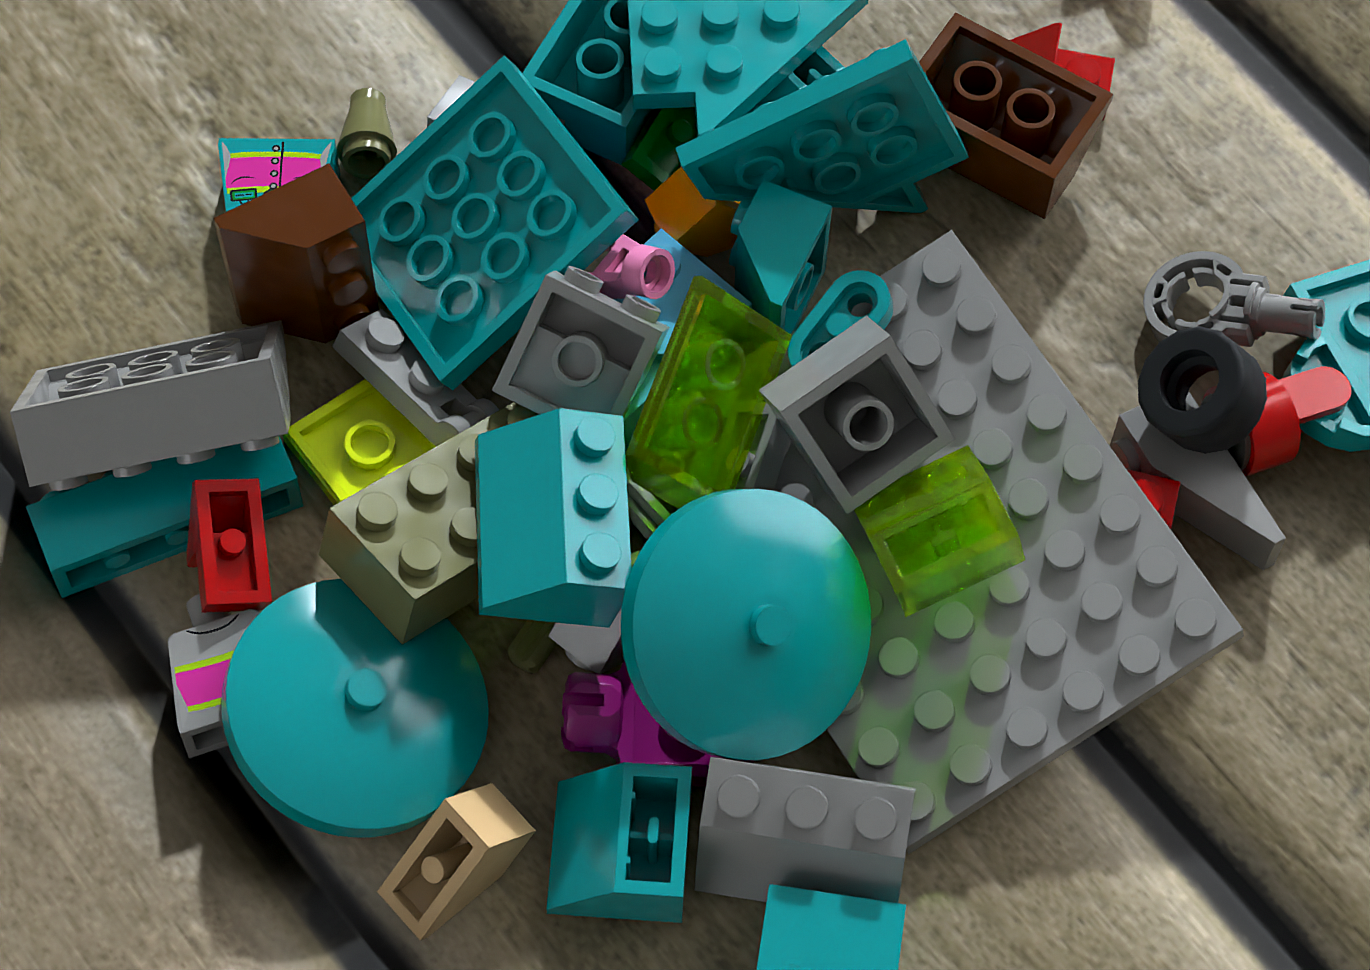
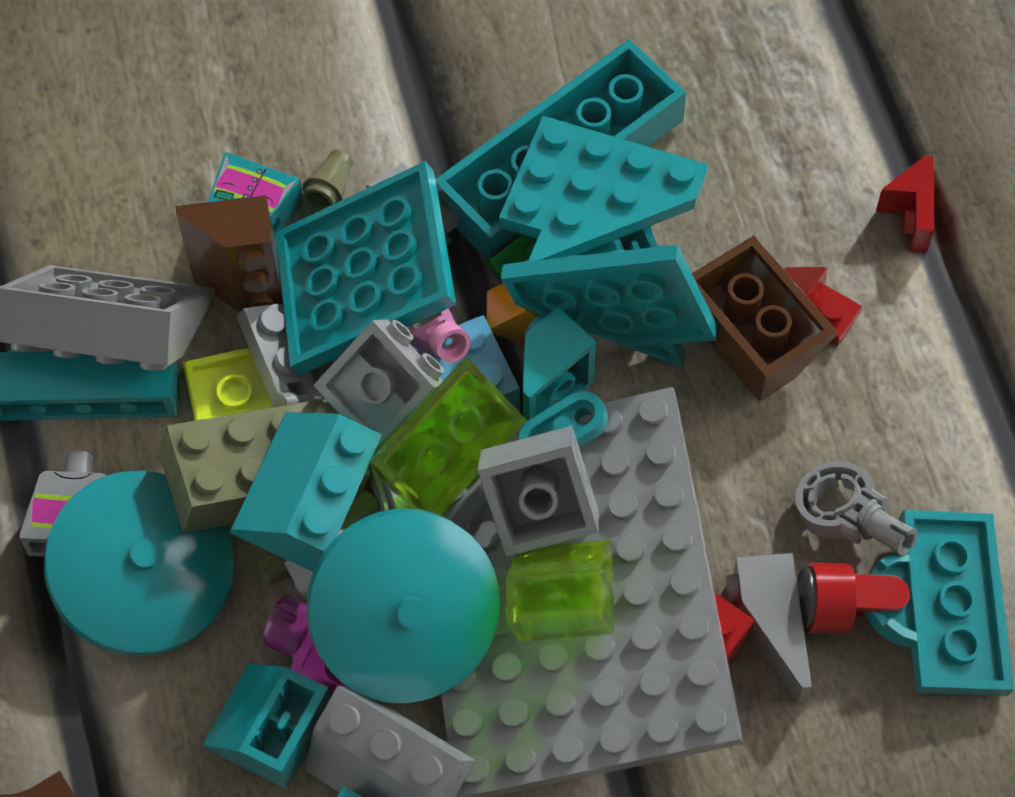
camera: 25 degrees right, 0 degrees up
(229, 545) = (105, 426): red slope -> none
(455, 858) = (159, 687): tan slope -> none
(1174, 369) = (808, 578): black tyre -> none

